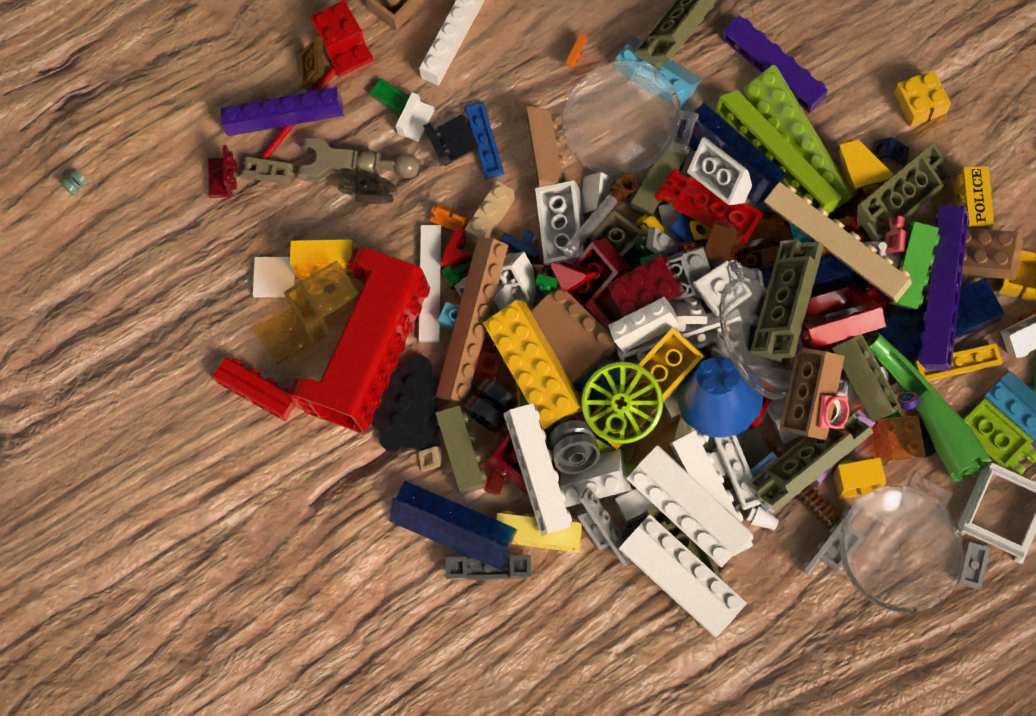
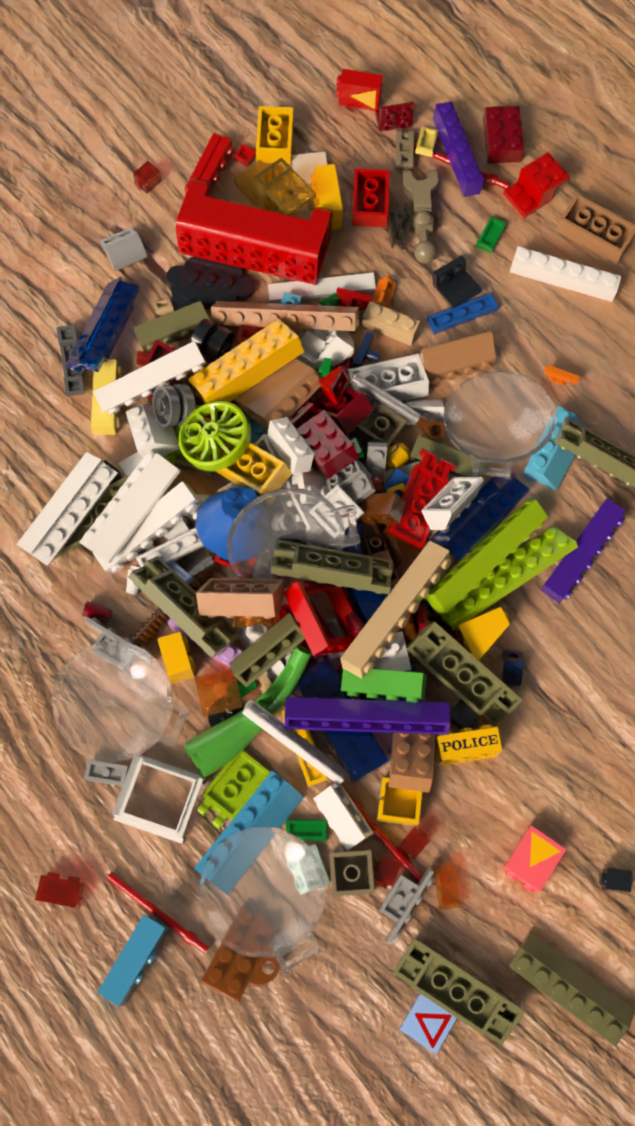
camera: 75 degrees right, 0 degrees up
(70, 185) = (370, 13): sand green wheel -> none
(184, 205) = (359, 89): none -> red brick
(226, 308) = (274, 134): none -> yellow brick
(241, 348) = (245, 155): none -> red tile
(256, 461) = (147, 177): none -> clear red brick
(262, 145) = (426, 141): none -> light yellow tile
(268, 63) = (503, 134): none -> dark red brick
(312, 62) = (508, 164): pearl gold tile -> none
(328, 213) = (370, 197): none -> red brick
(348, 496) = (123, 248): none -> light grey brick
(413, 118) = (475, 252): white panel -> none
(599, 525) = (114, 436): light grey bracket -> none
(794, 563) = (97, 611): none -> dark red cone
(842, 412) = (217, 623): coral piece -> none
(849, 286) = (355, 624): none -> dark red cone
(897, 236) = (409, 662): coral plate -> none
(908, 399) = (253, 692): dark purple tile -> none
(921, 94) = (575, 689): yellow piece -> none
(941, 198) = (463, 716): none -> black brick
(962, 365) = (294, 742): none -> white tile

